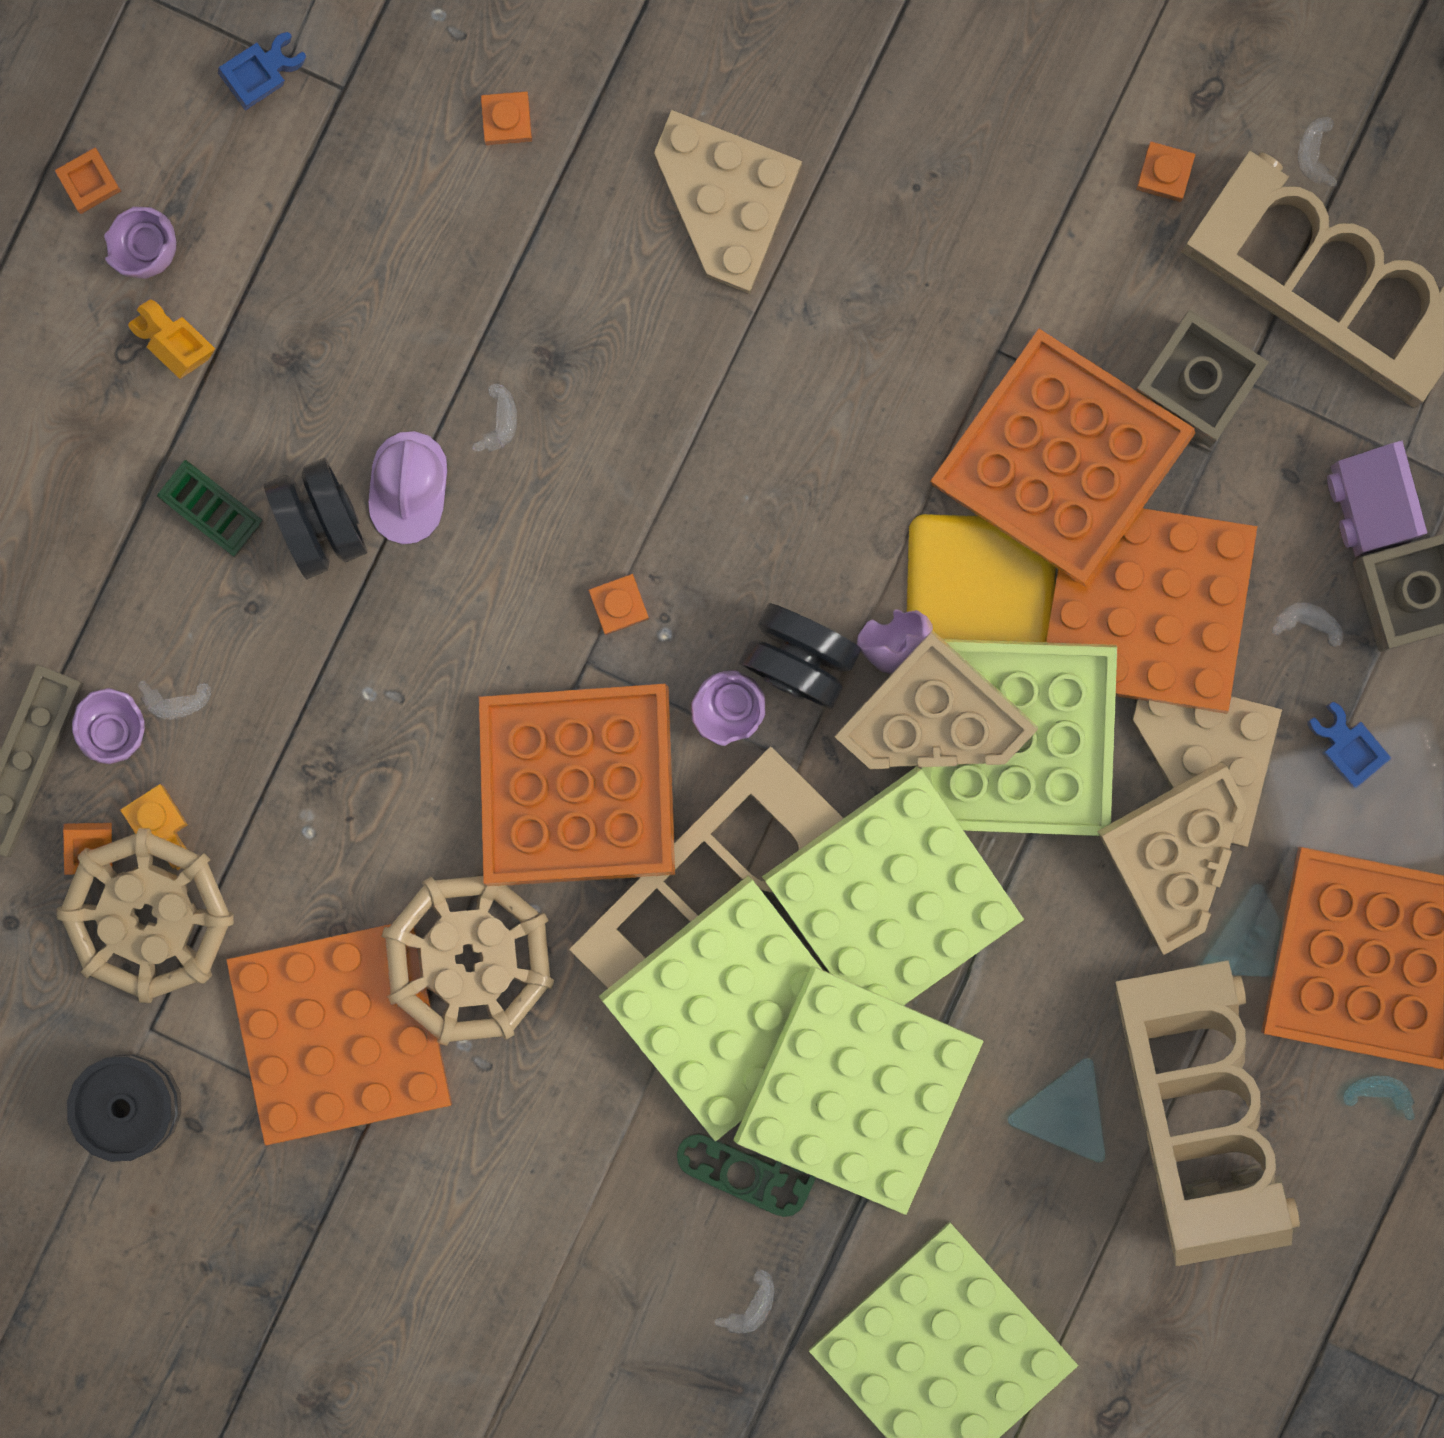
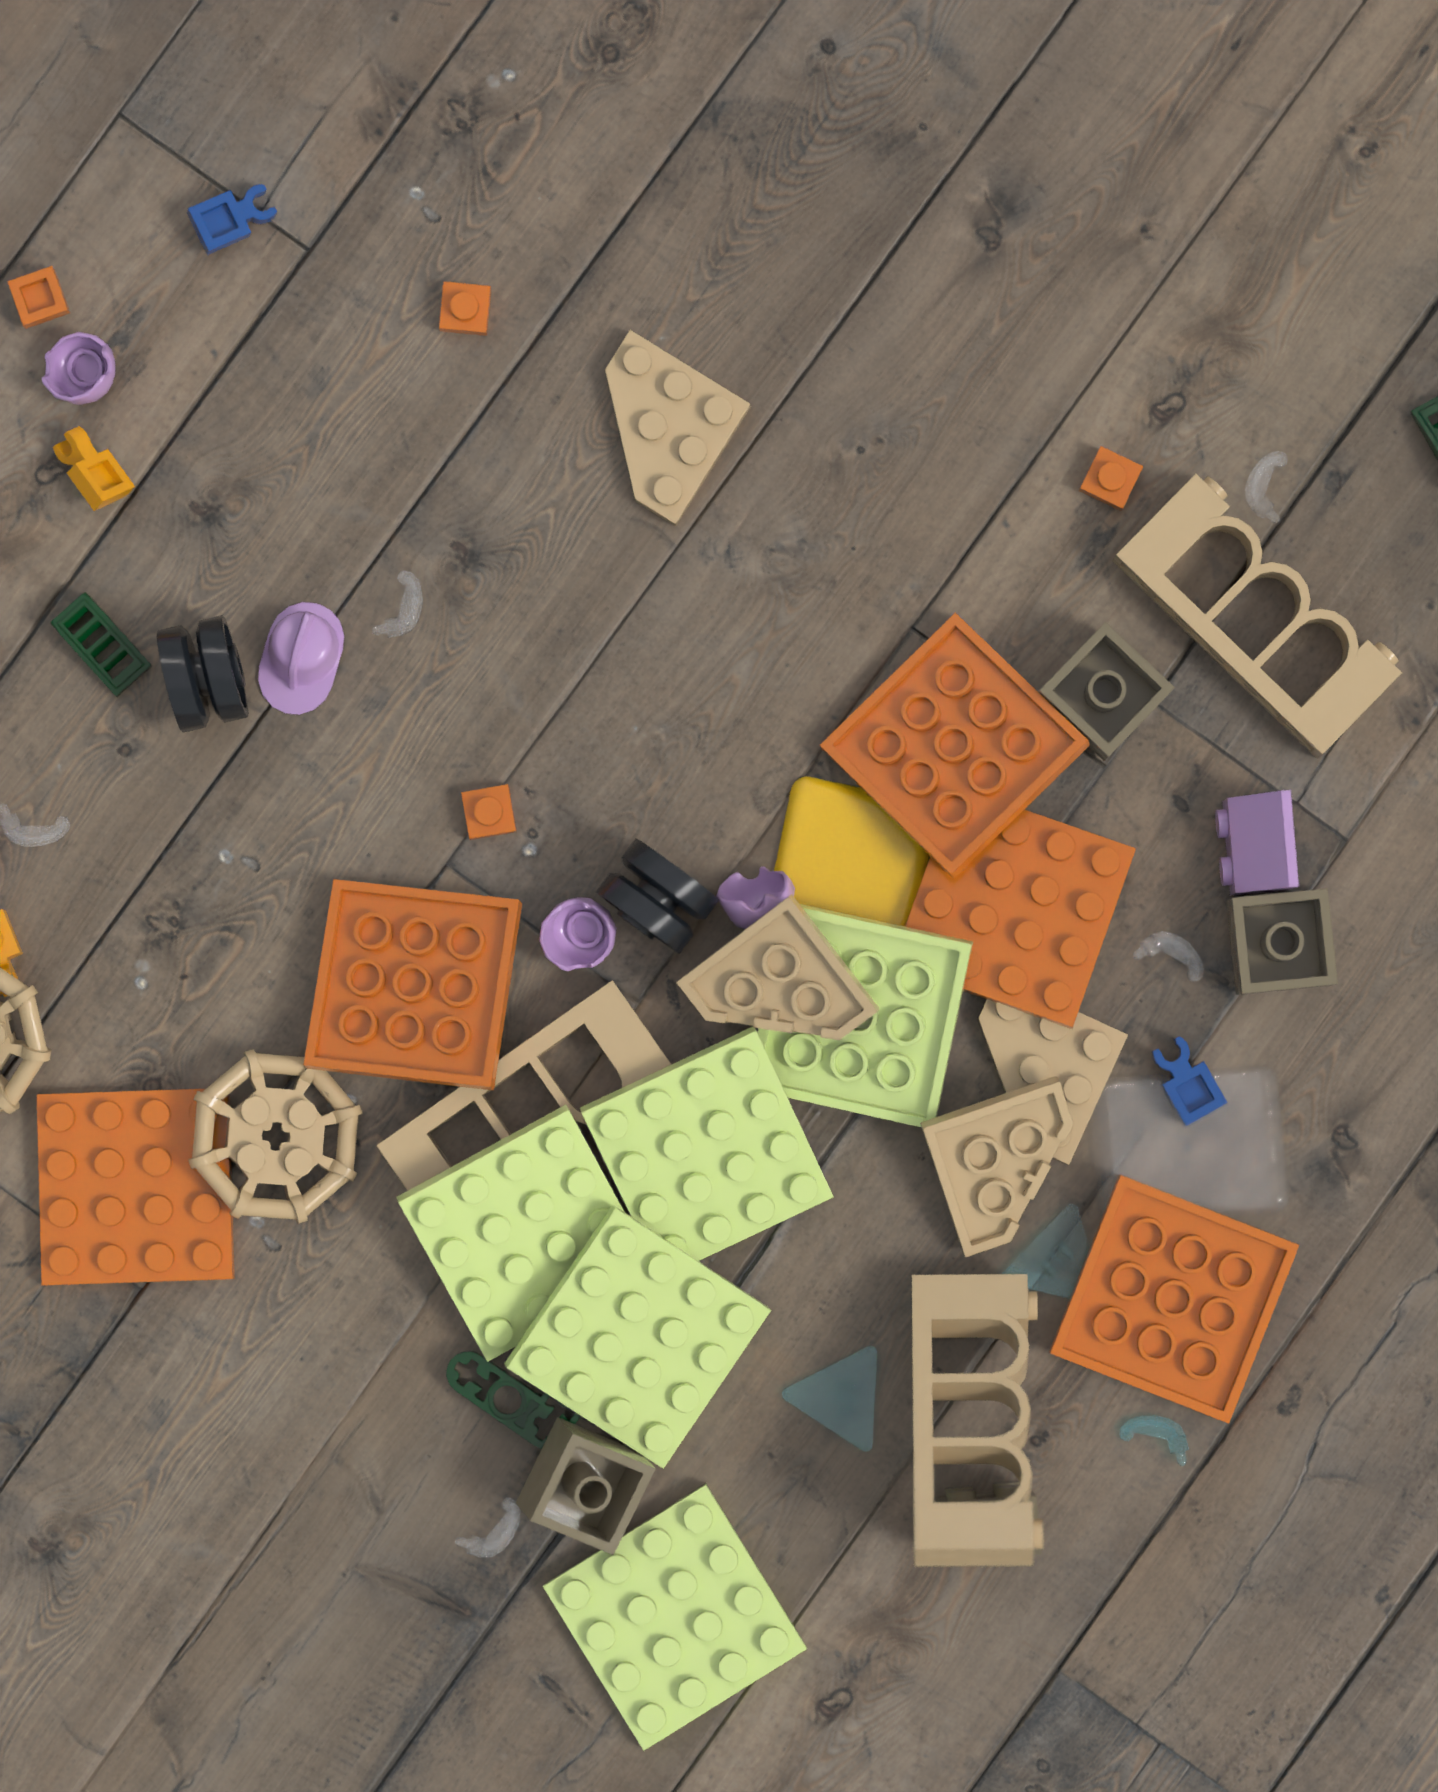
camera: 15 degrees right, 0 degrees up
(834, 1245) = (585, 1486): none -> dark tan brick

